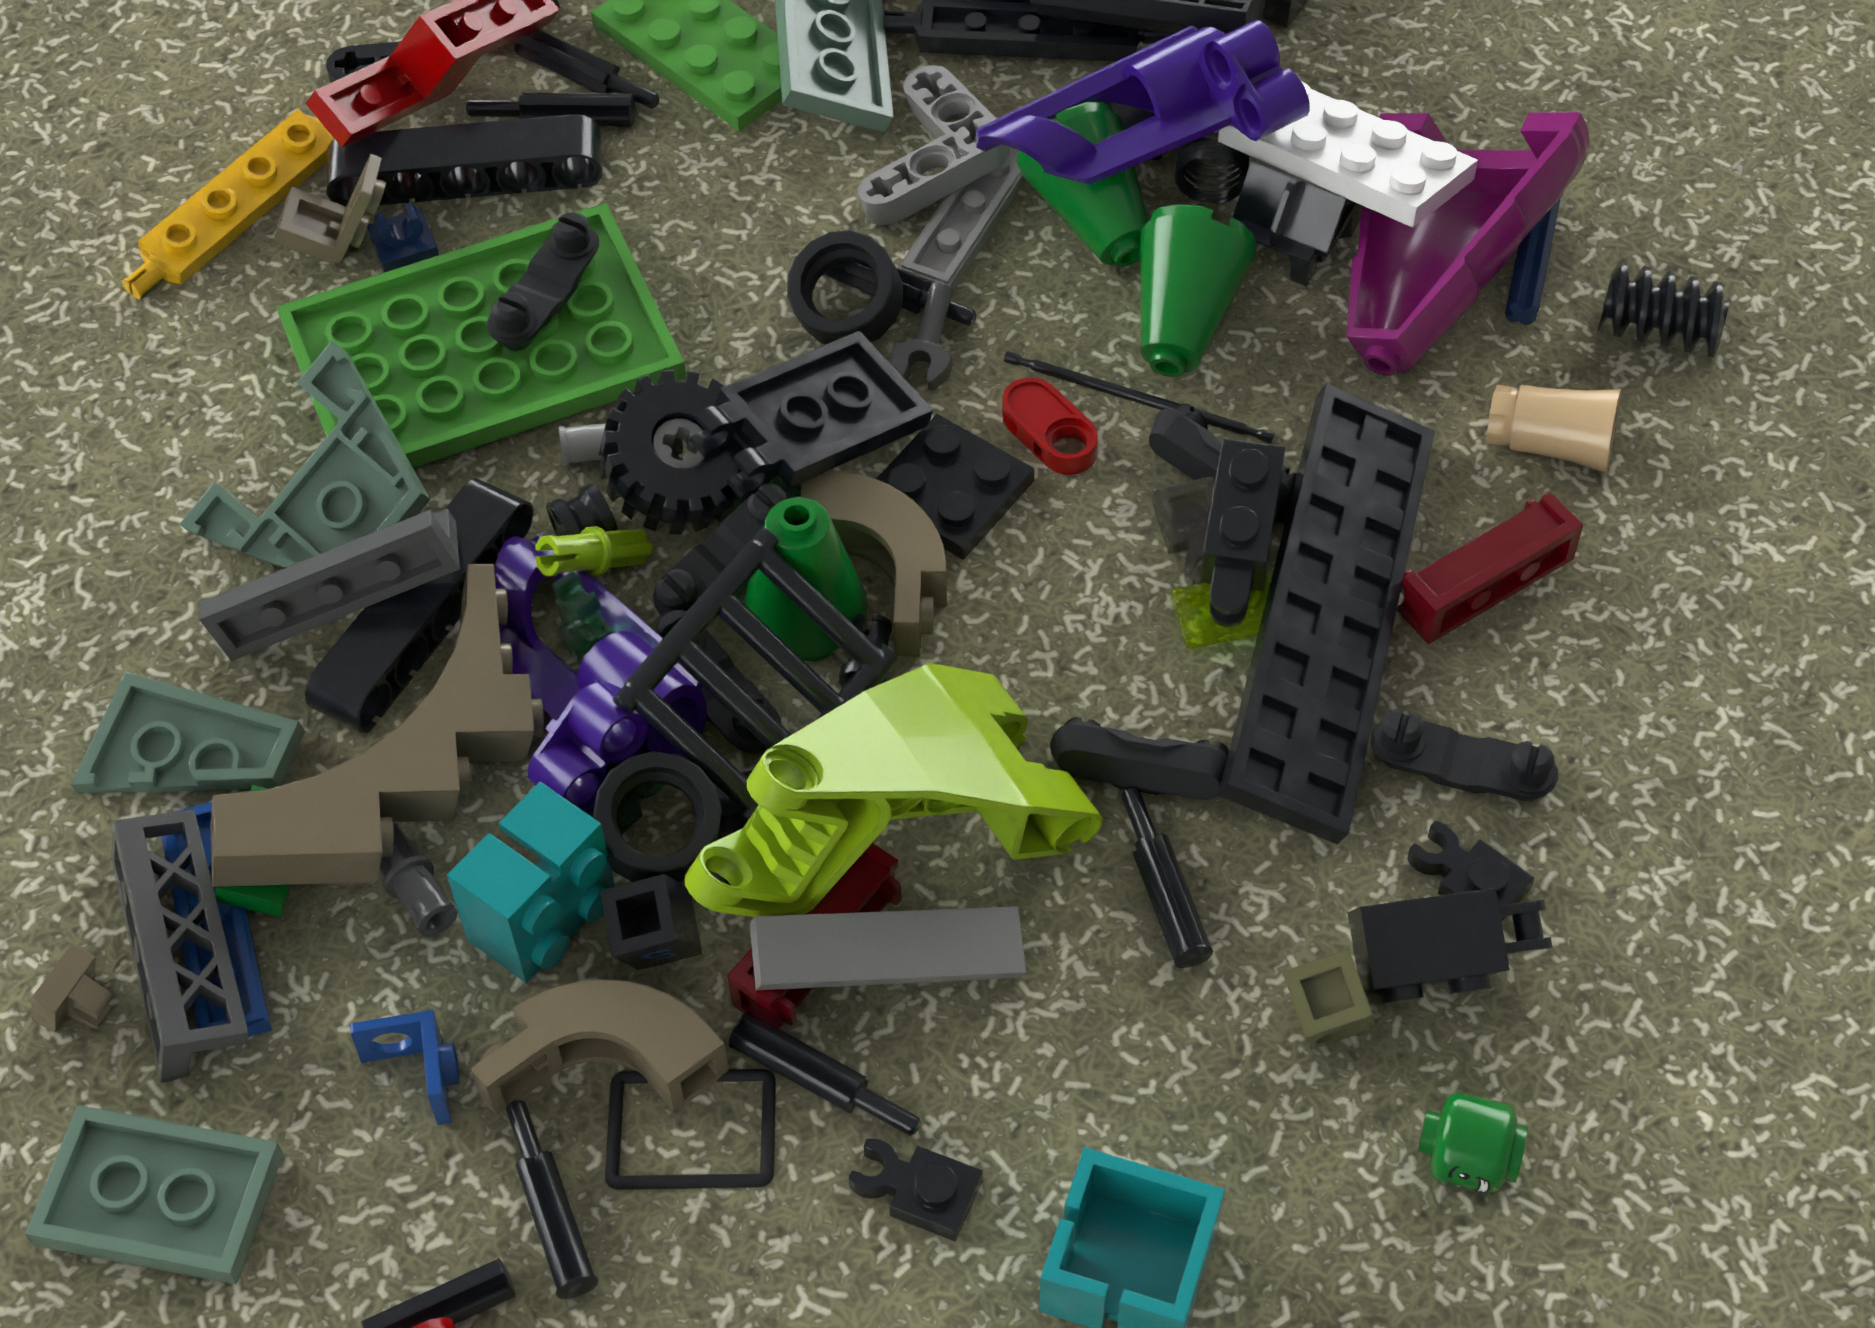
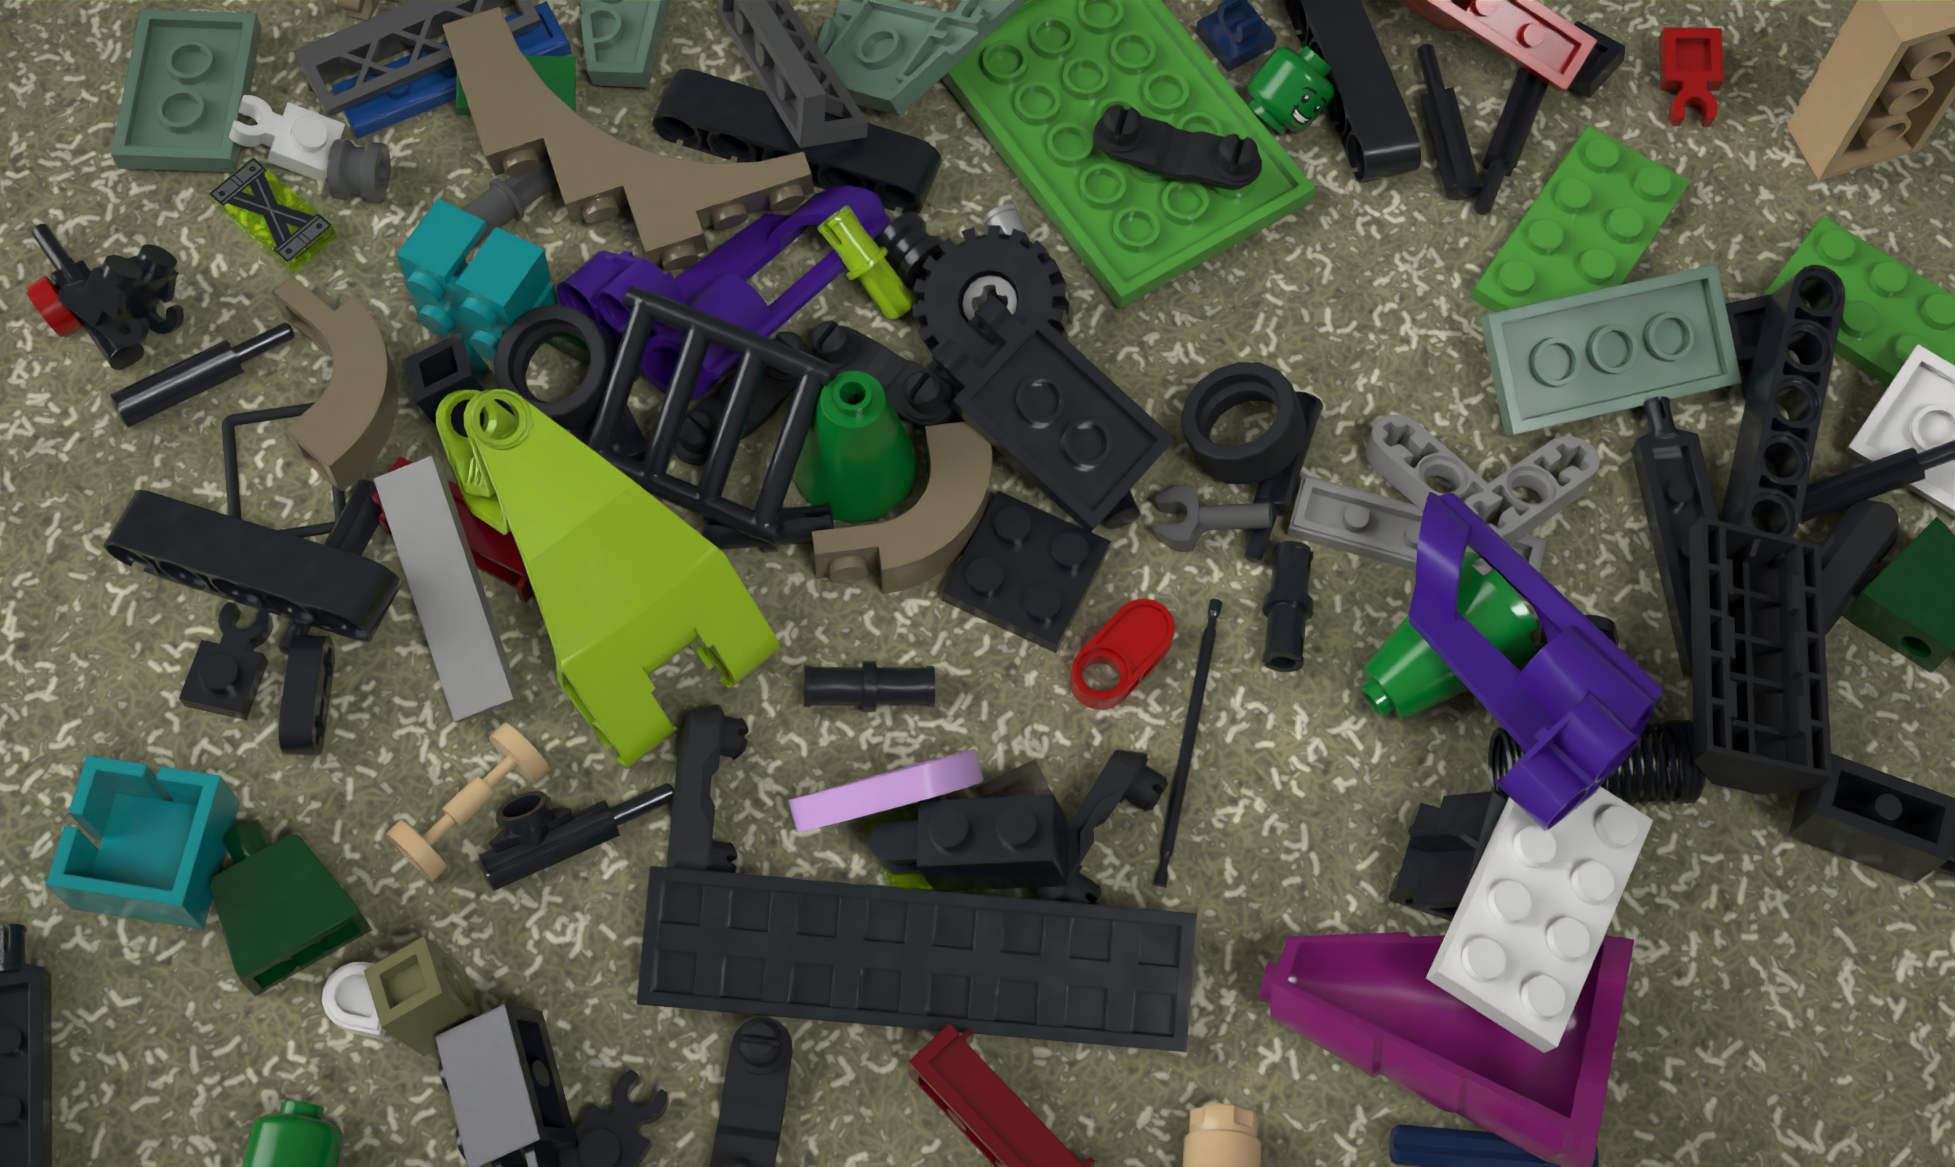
camera: 75 degrees right, 10 degrees up
(261, 1075) = (297, 139): none -> white plate
(331, 1008) = (358, 170): none -> dark grey wheel
(354, 1117) = (272, 215): none -> tile
(424, 1037) = (315, 256): blue bracket -> none
(442, 1245) = (126, 295): none -> black piece
(493, 197) = (1290, 89): none -> green head
(579, 615) = (779, 263): clear green plate -> none
(820, 1135) = (254, 565): none -> black beam
(976, 1102) = (306, 695): none -> black beam
(1027, 298) = (1288, 606): none -> black pin
(1050, 618) = (869, 686): none -> black pin
(1077, 911) = (517, 754): none -> tan wheel
(1134, 905) = (527, 820): none -> black plate
(1172, 596) = (886, 790): none -> lavender piece
(1187, 283) = (1318, 759): green cone -> none
(1217, 1130) = (279, 907): none -> dark green torso
(1309, 1081) = (350, 1002): none -> white tile

